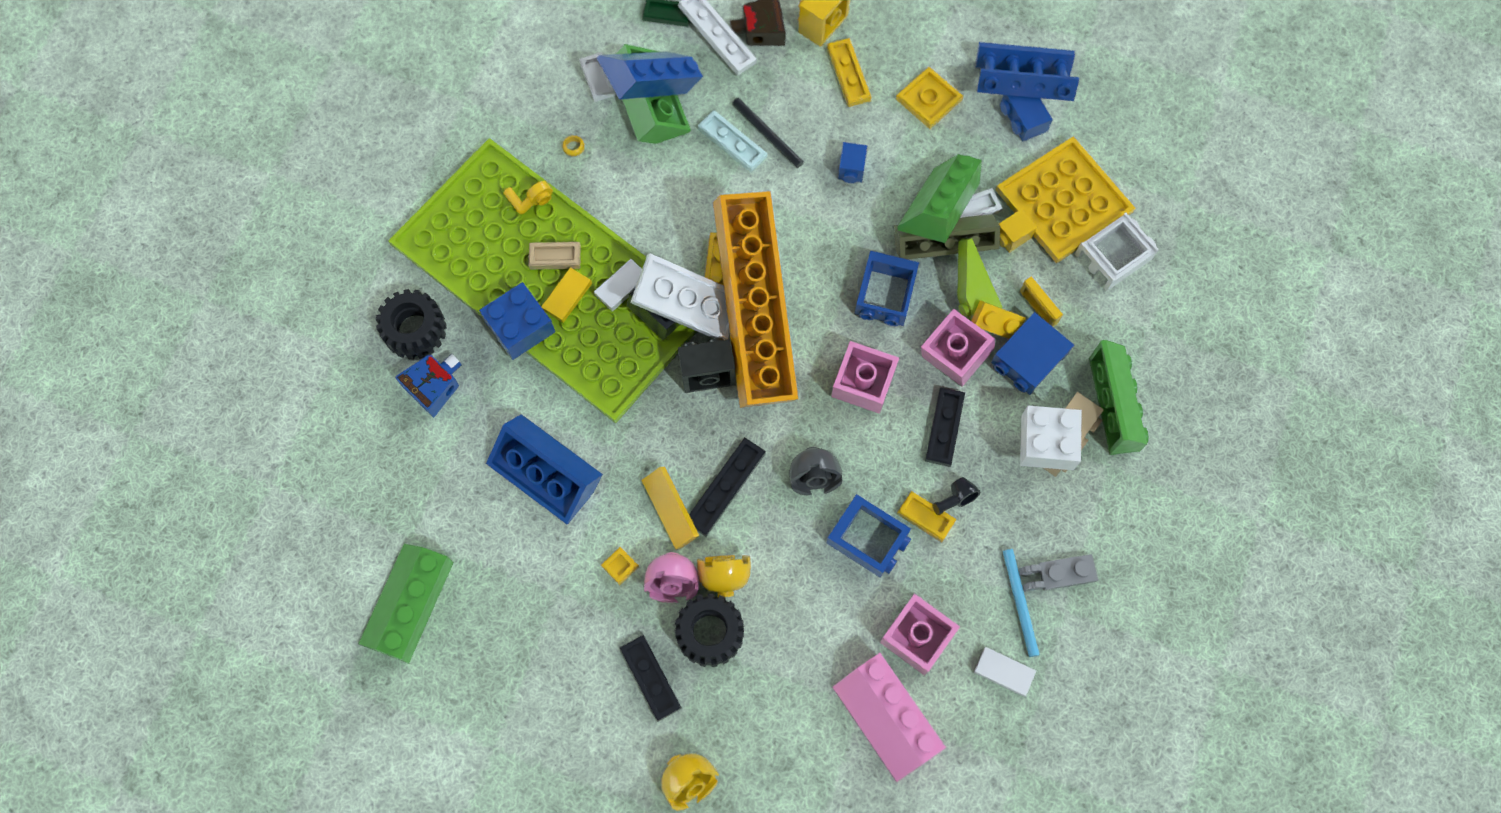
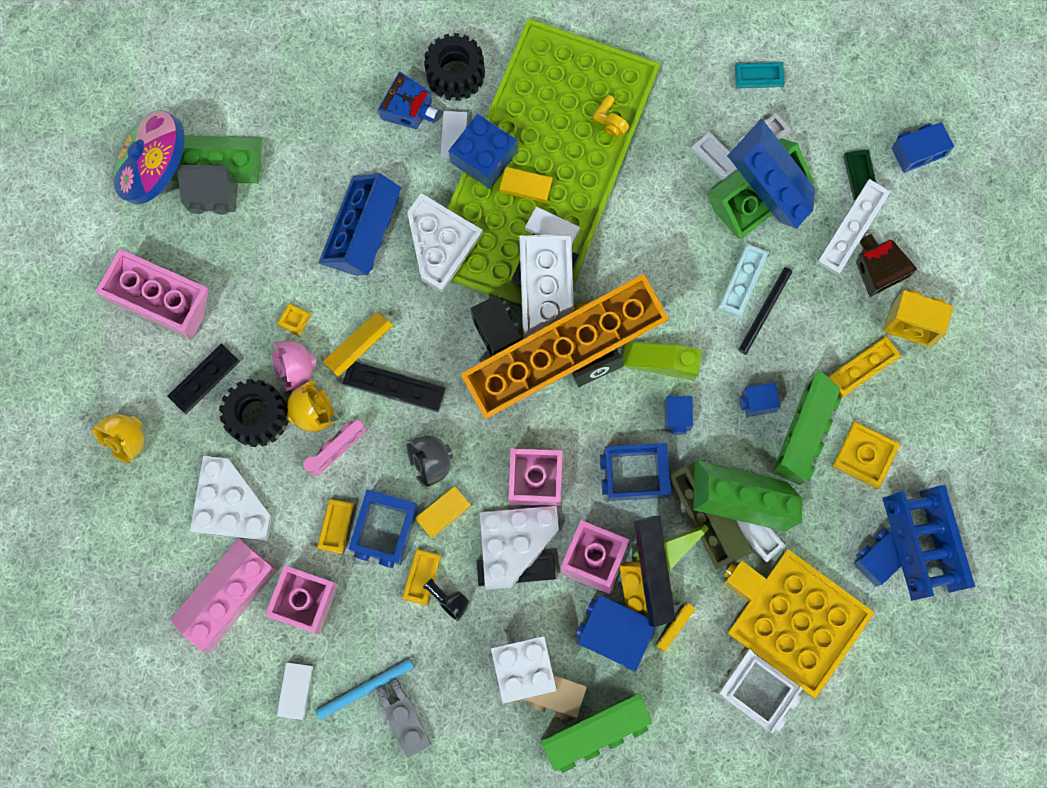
camera: 75 degrees right, 5 degrees up
(385, 662) = (148, 157): none -> dish
(445, 611) = (207, 188): none -> dark grey slope
(481, 350) = (453, 125): none -> white tile
(535, 61) = (759, 75): none -> teal tile
(541, 700) = (154, 294): none -> bright pink slope
(555, 255) = (561, 161): tan tile -> none
(573, 153) = (683, 147): yellow piece -> none
(595, 392) = (440, 240): none -> white plate
(602, 123) = (714, 155): none -> white tile
(772, 561) = (335, 448): none -> bright pink plate
(792, 222) = (663, 359): none -> lime slope
(793, 688) = (227, 503): none -> white plate
(843, 235) = (678, 414): none -> blue brick
(851, 584) = (336, 526): none -> yellow tile
(868, 476) = (443, 512): none -> yellow tile
(892, 134) = (807, 429): none -> bright green slope
(919, 418) = (514, 542): none -> white plate
(990, 294) = (654, 570): none -> black tile

